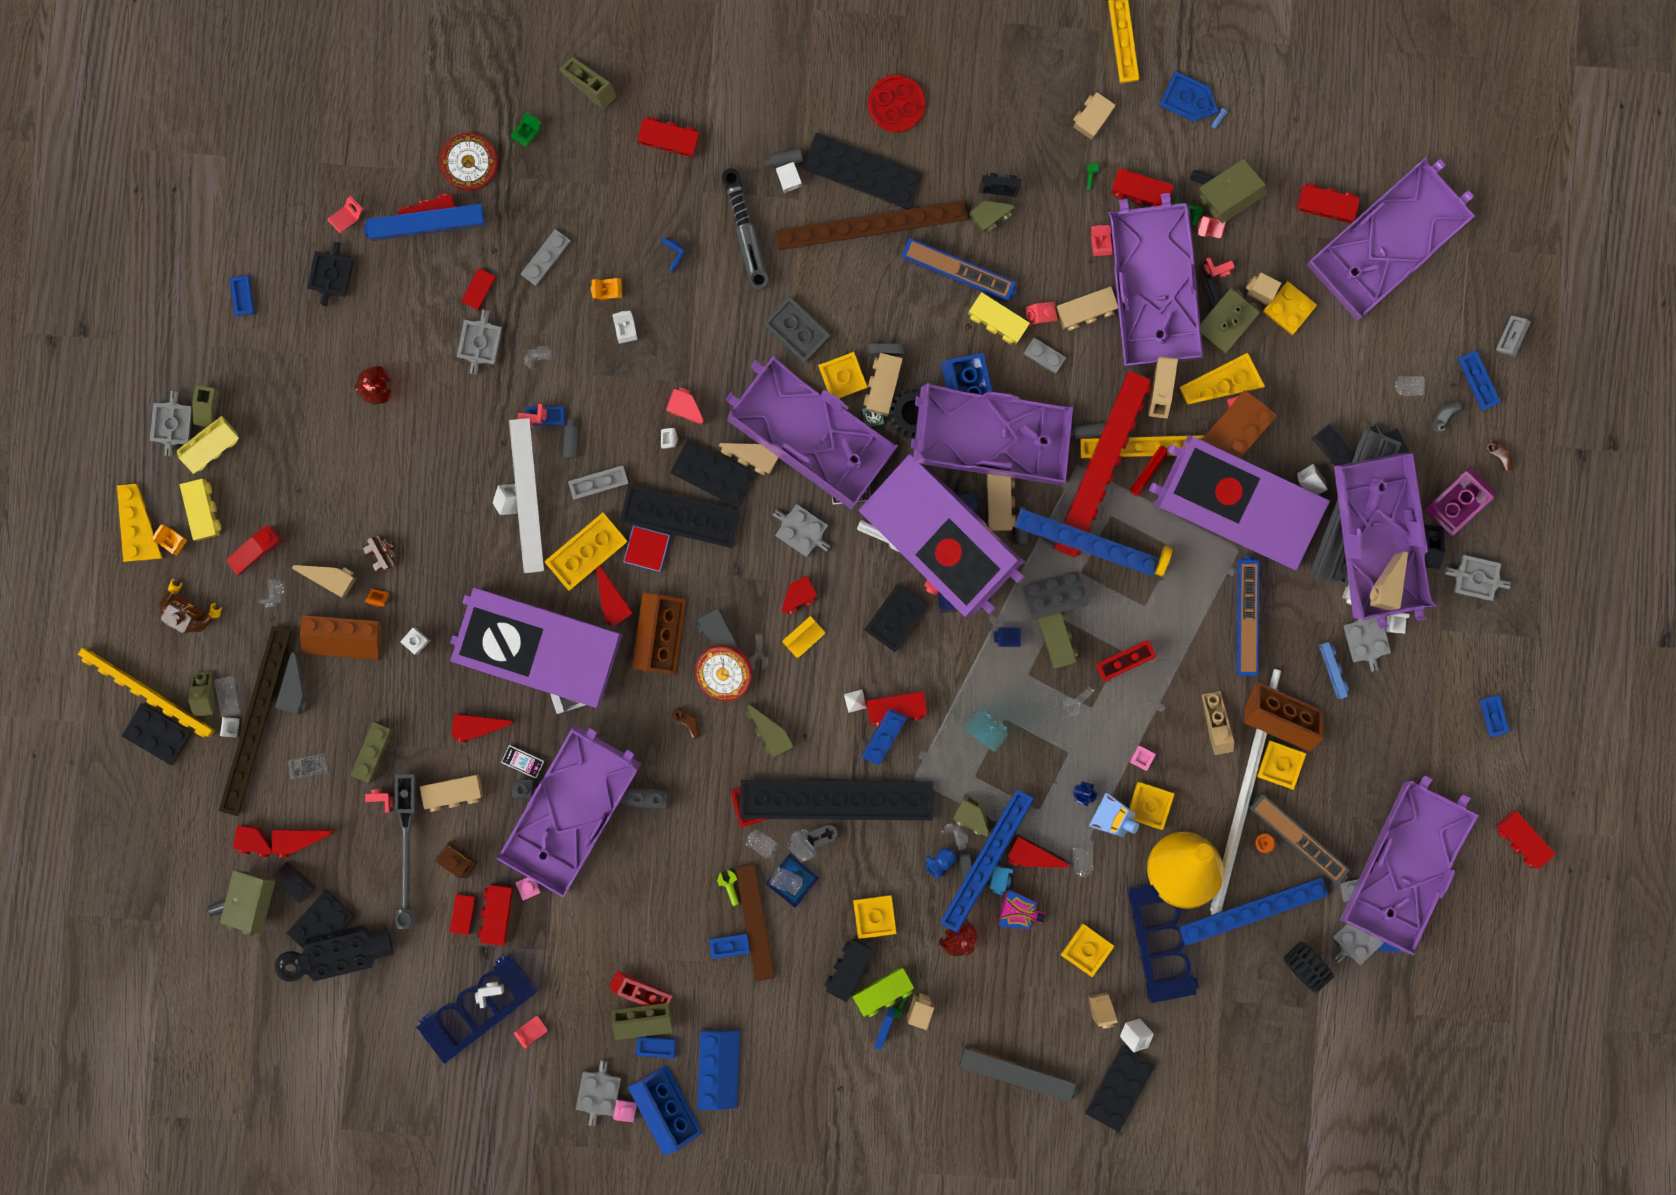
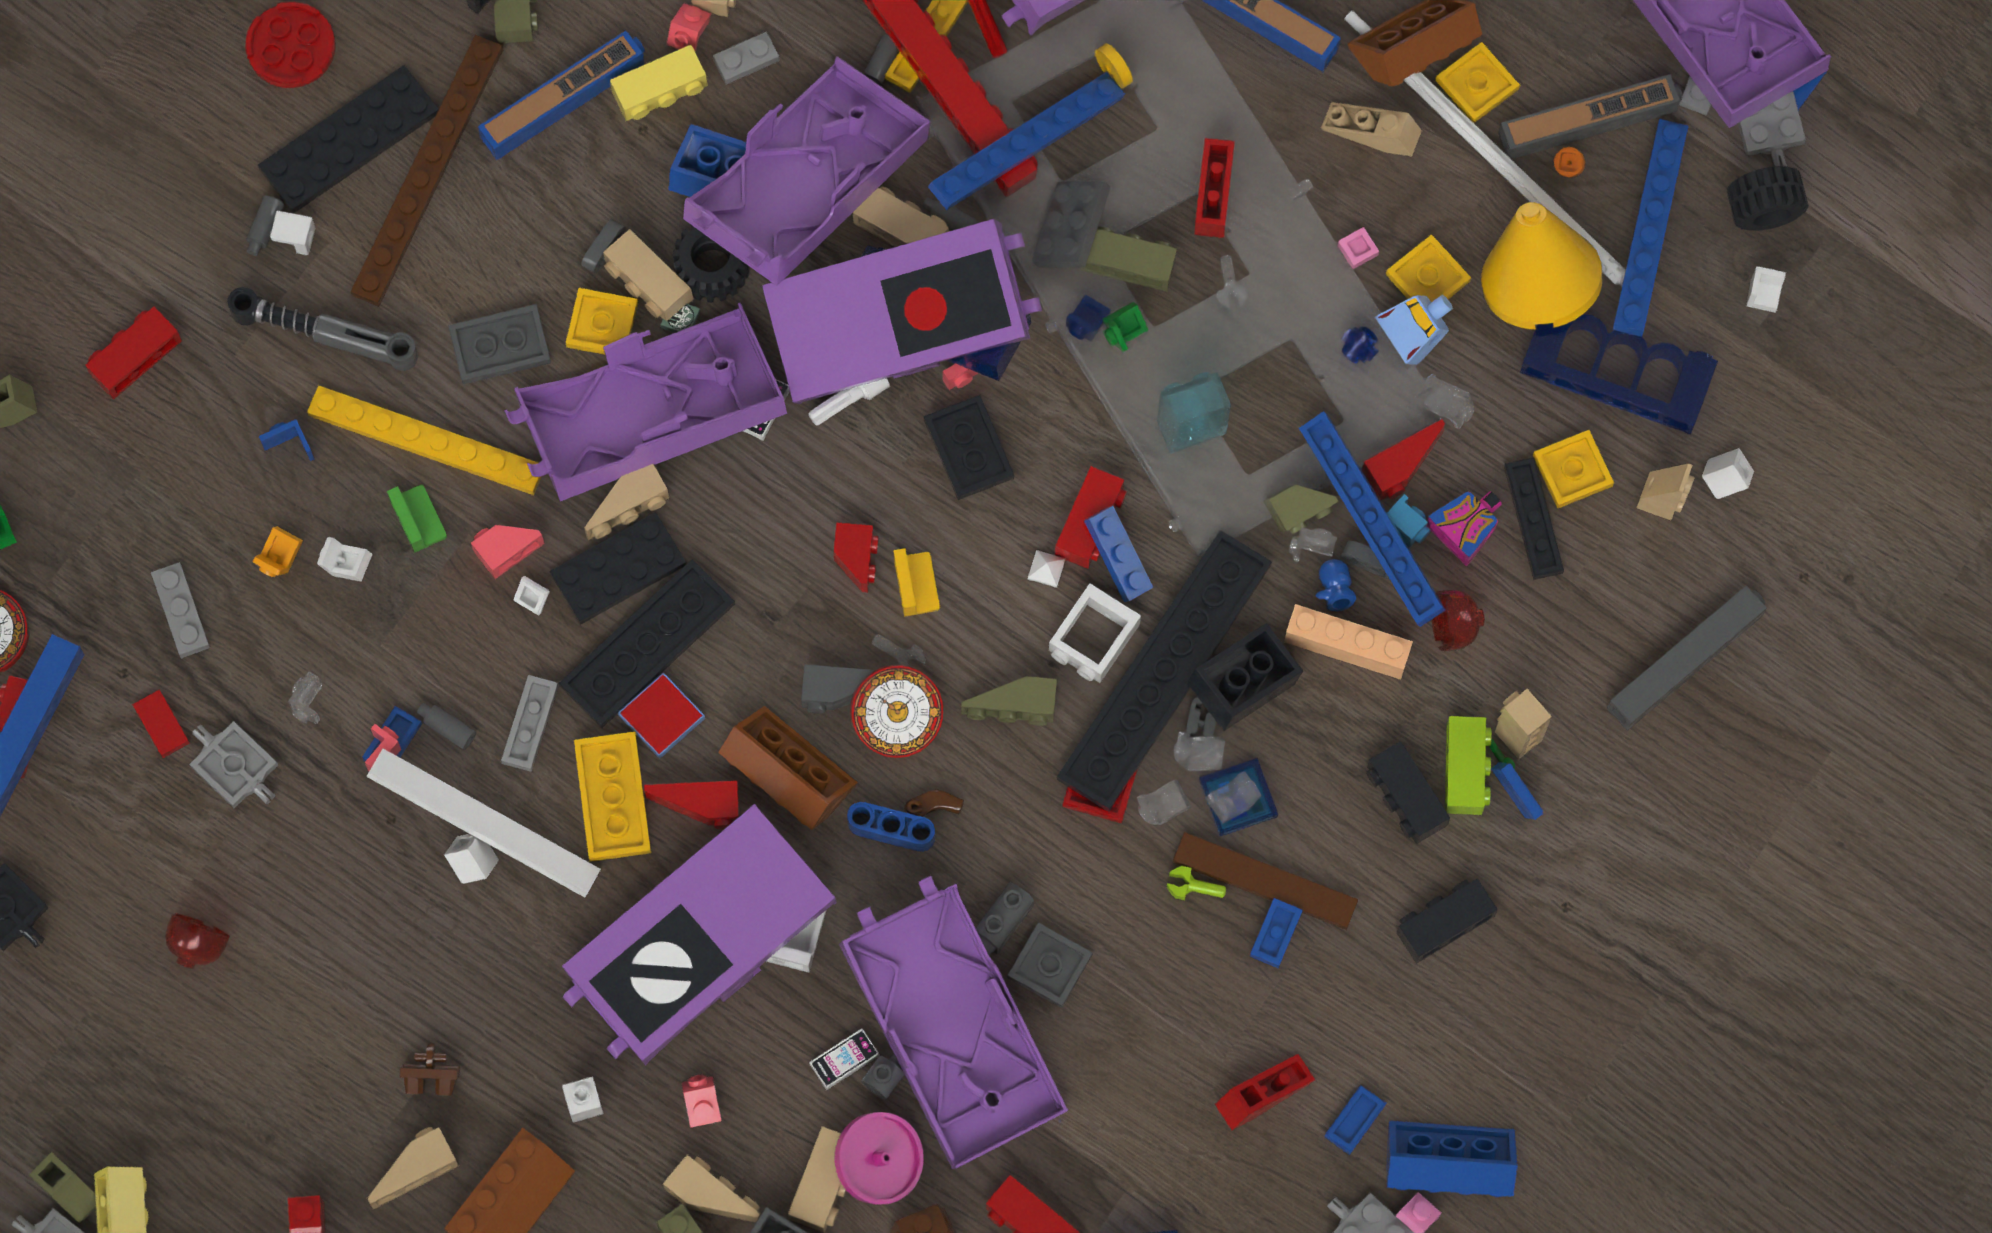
camera: 60 degrees left, 15 degrees down
(377, 597) = (489, 1118): orange slope -> none
(406, 732) = (705, 1193): none -> tan slope
(454, 701) = (701, 1100): none -> coral bracket
(471, 727) = (752, 1094): red slope -> none
(478, 814) = (879, 1158): none -> dark pink piece
(527, 888) = (1023, 1159): bright pink plate -> none
(638, 838) = (1050, 965): none -> dark grey plate
(642, 1021) = (1307, 1111): olive brick -> none
(667, 715) = (880, 815): none -> blue beam
(674, 348) = (417, 517): none -> bright green panel
(718, 1069) = (1437, 1052): blue slope -> none
(719, 323) = (423, 439): none -> yellow plate
(791, 1031) = (1446, 919): none -> black brick
(801, 530) = (771, 498): light grey plate -> none
(811, 741) = (1111, 609): none -> white window
(856, 846) = (1245, 676): none -> black brick
(874, 916) = (1356, 716): yellow plate -> none
(912, 888) = (1348, 641): none -> light nougat brick
(1015, 659) = (1124, 326): none -> green bracket
(1047, 944) = (1533, 518): none -> black tile
(1120, 1088) = (1788, 539): black plate -> none
(1256, 993) = (1765, 289): none -> white panel

